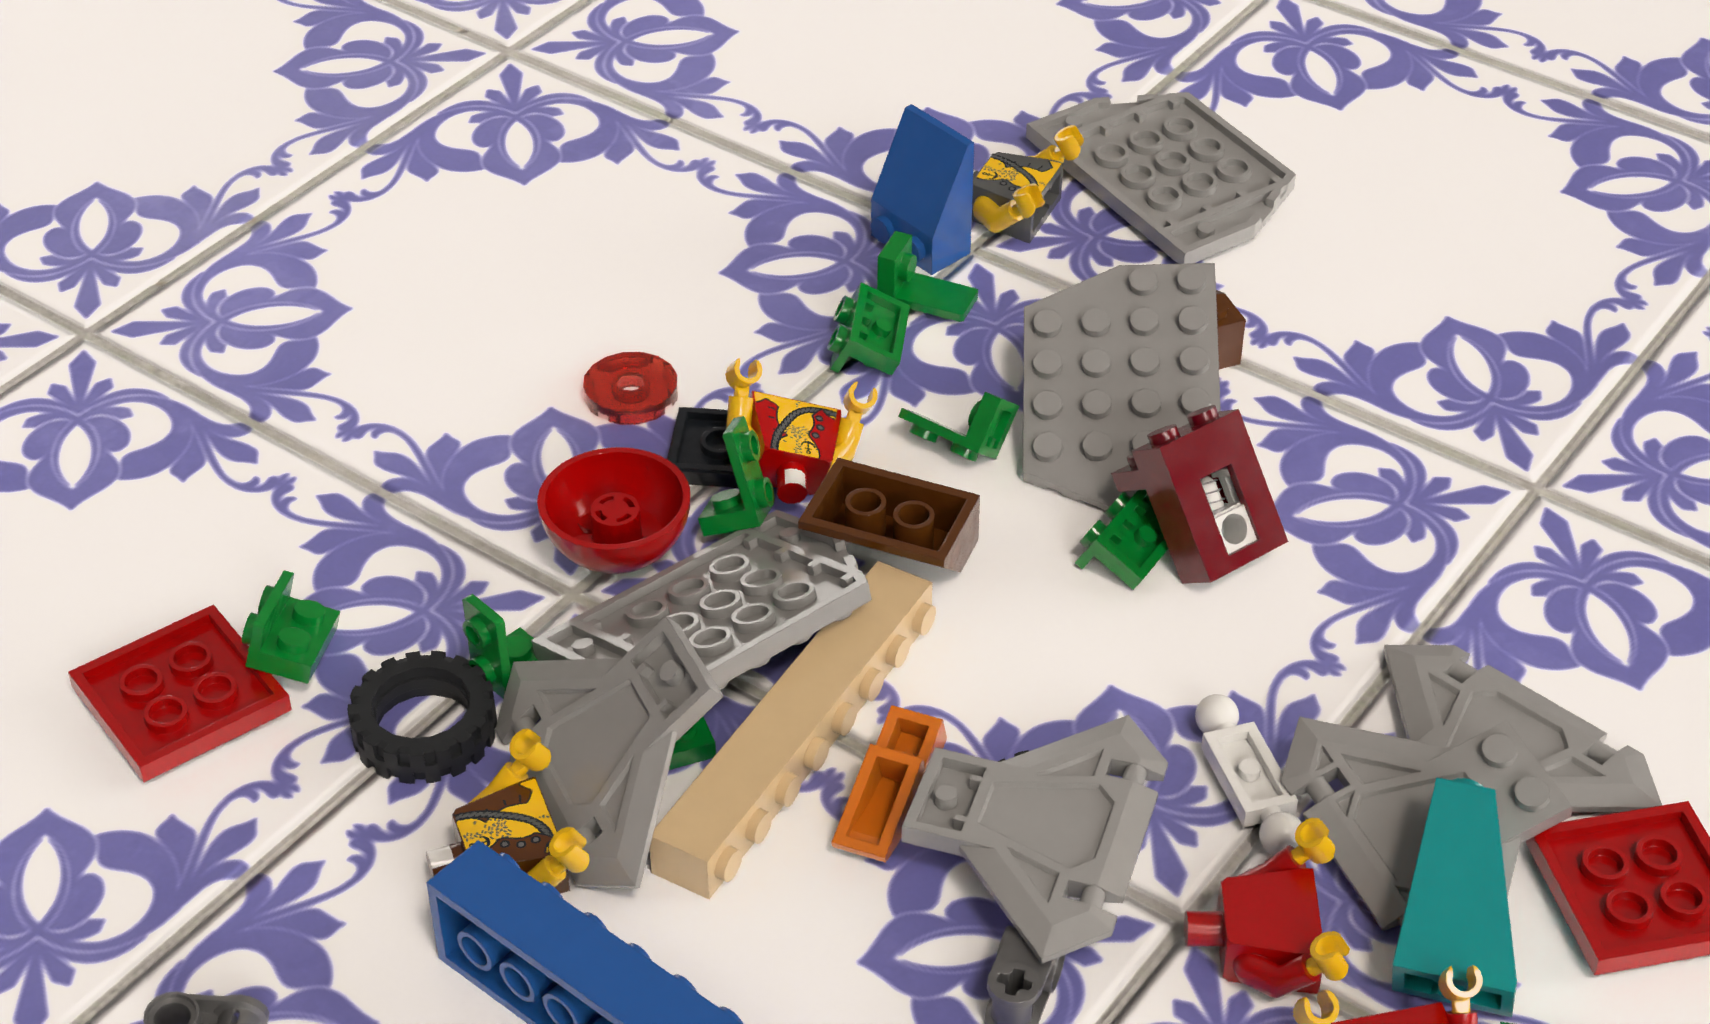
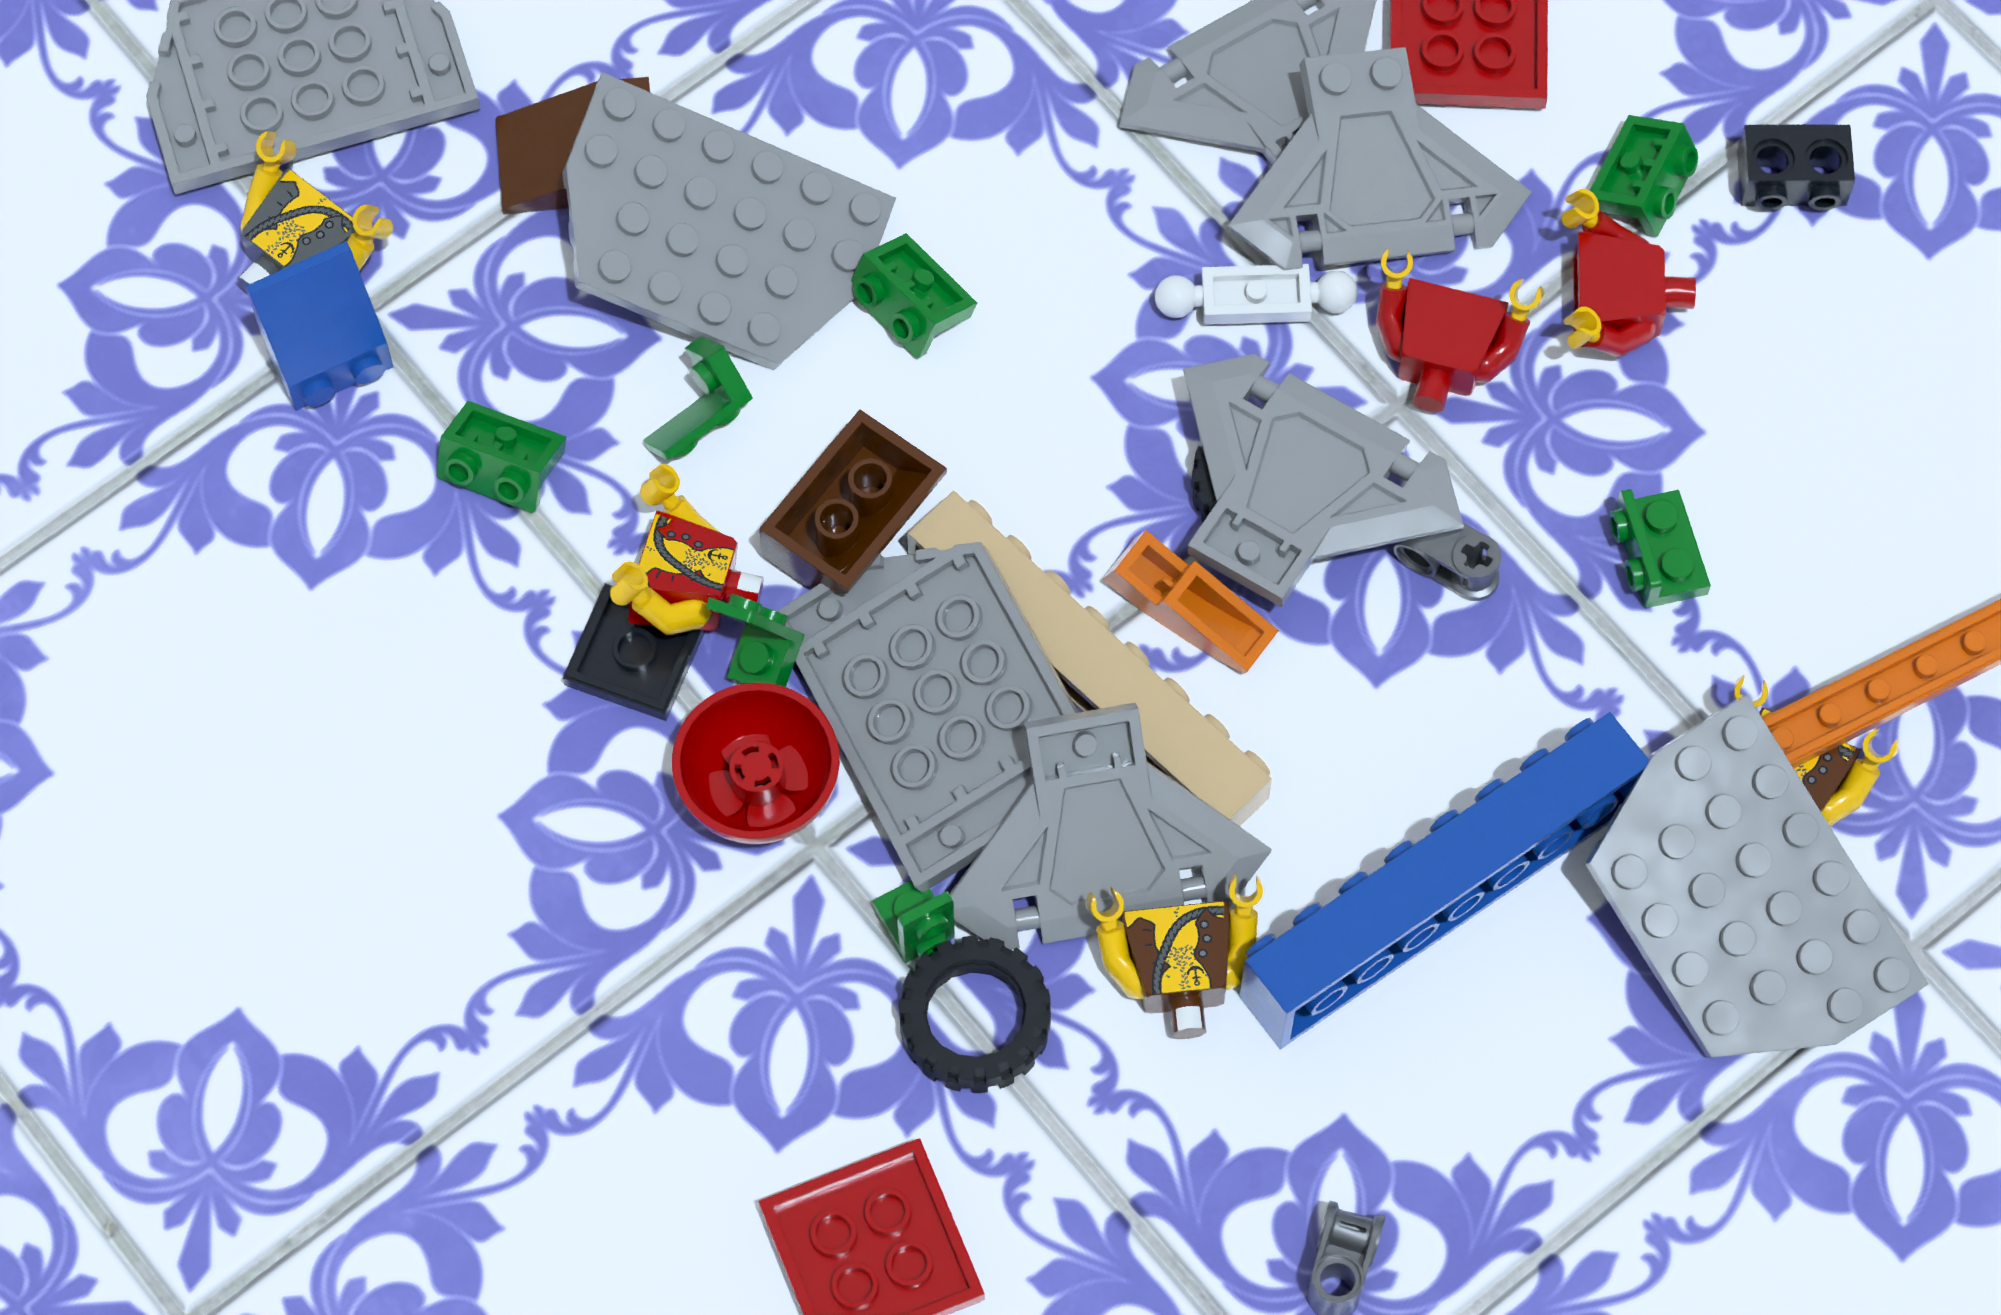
camera: 75 degrees left, 25 degrees up
(288, 632) = (830, 1125): green bracket -> none
(609, 376) = (498, 693): clear red tile -> none
(923, 293) = (442, 379): green bracket -> none
(1196, 484) = (910, 201): dark red brick -> none
(1459, 902) = (1476, 177): teal slope -> none

